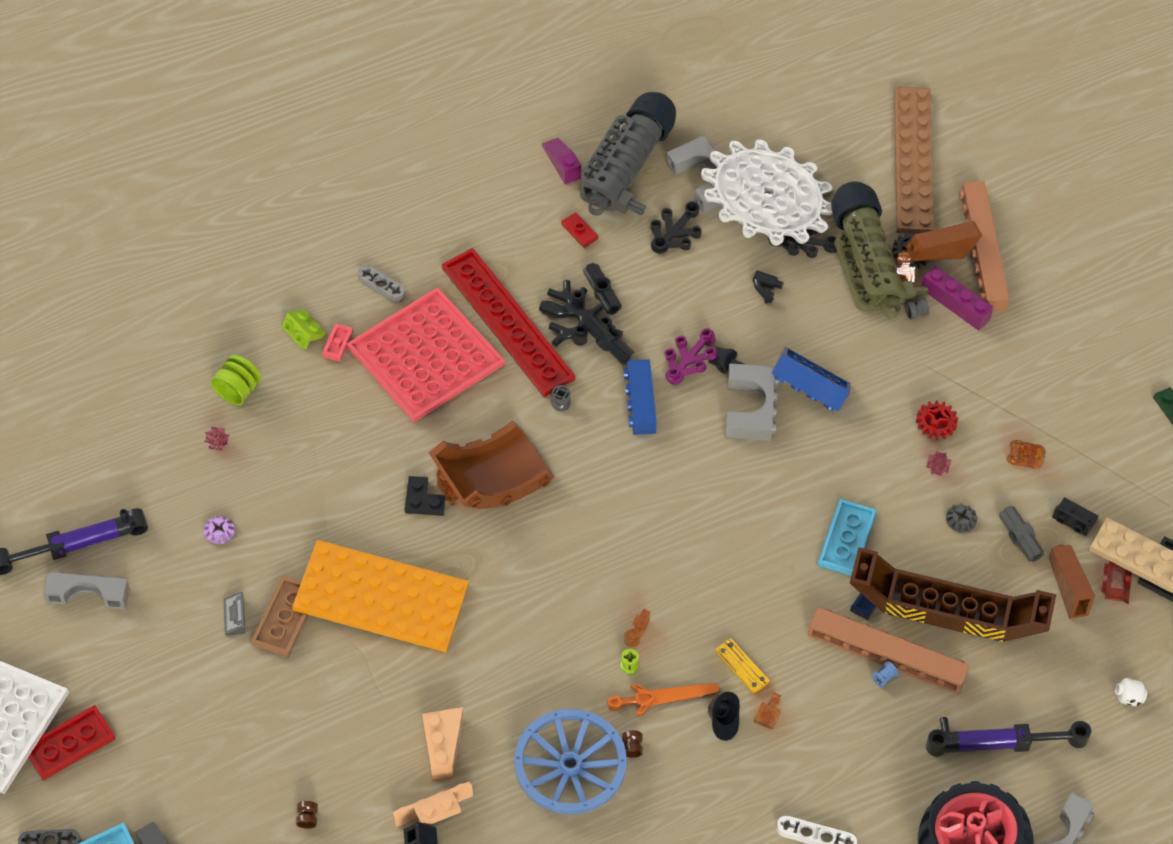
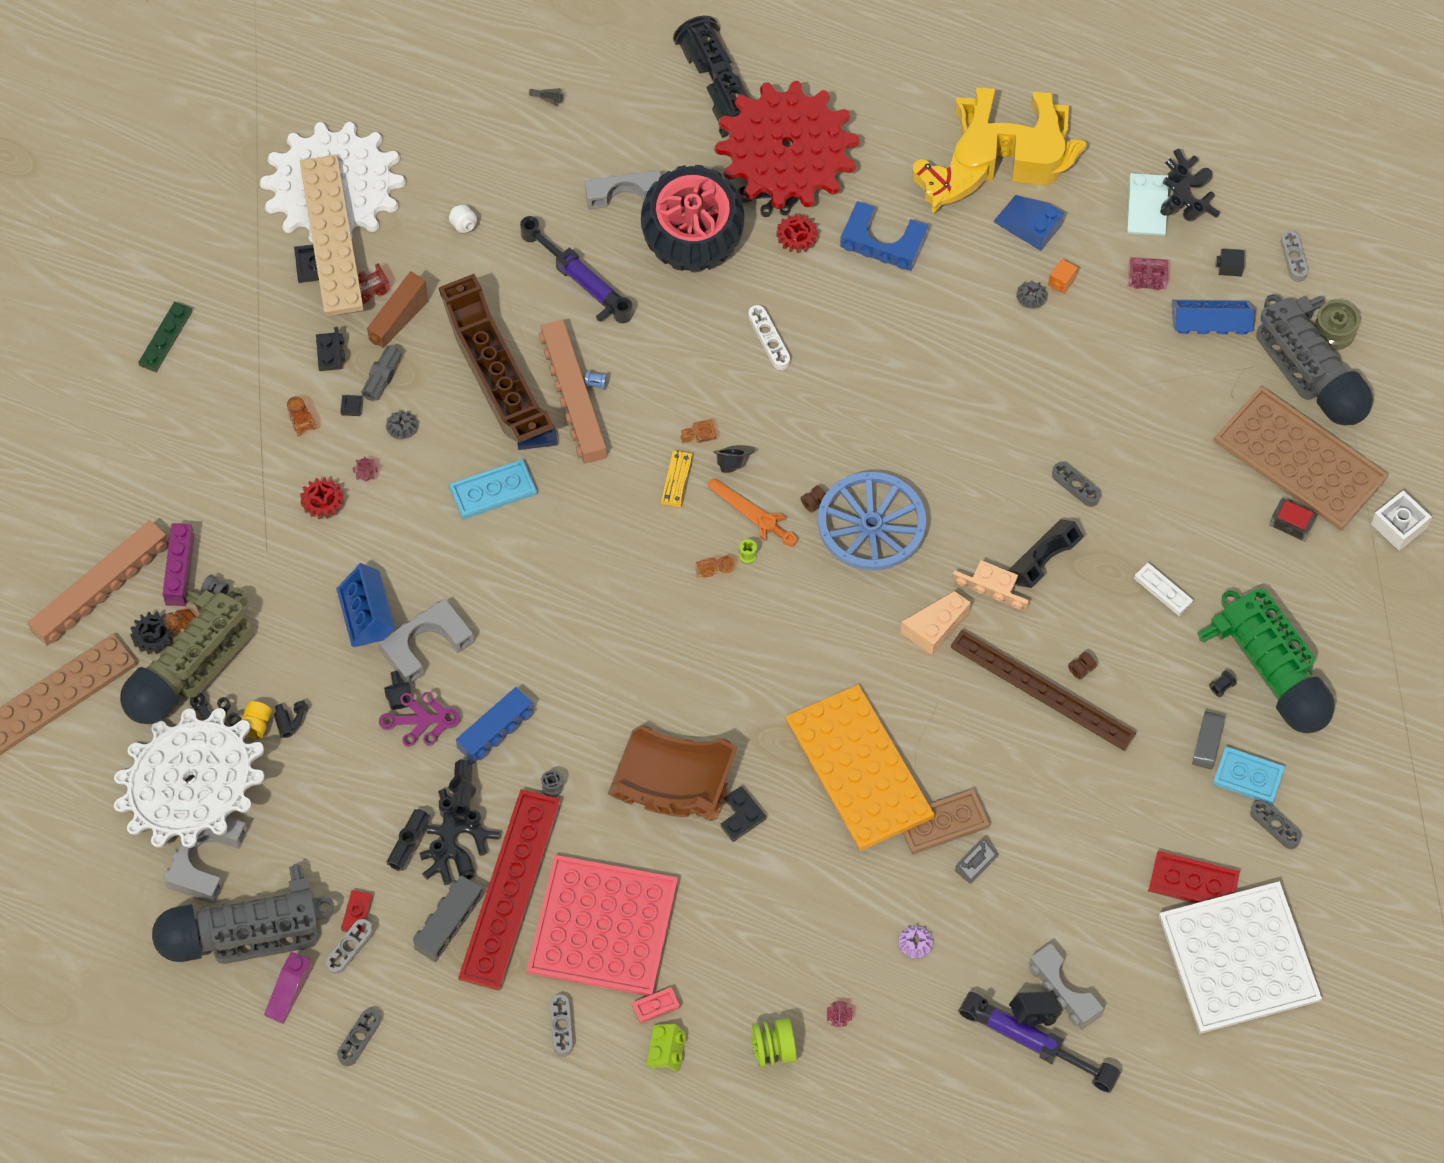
camera: 130 degrees left, 5 degrees up
(88, 551) = (1035, 1008): none -> black brick
(315, 771) = (1043, 690): none -> reddish brown plate
(490, 167) = (345, 1047): none -> dark grey beam
(521, 271) = (448, 918): none -> dark grey brick
(559, 200) = (350, 955): none -> light grey beam
(661, 244) = (290, 835): black plant -> none
(781, 260) = (257, 716): none -> yellow wheel
(944, 243) = (133, 599): dark orange slope -> none
(1009, 497) = (351, 405): none -> black tile

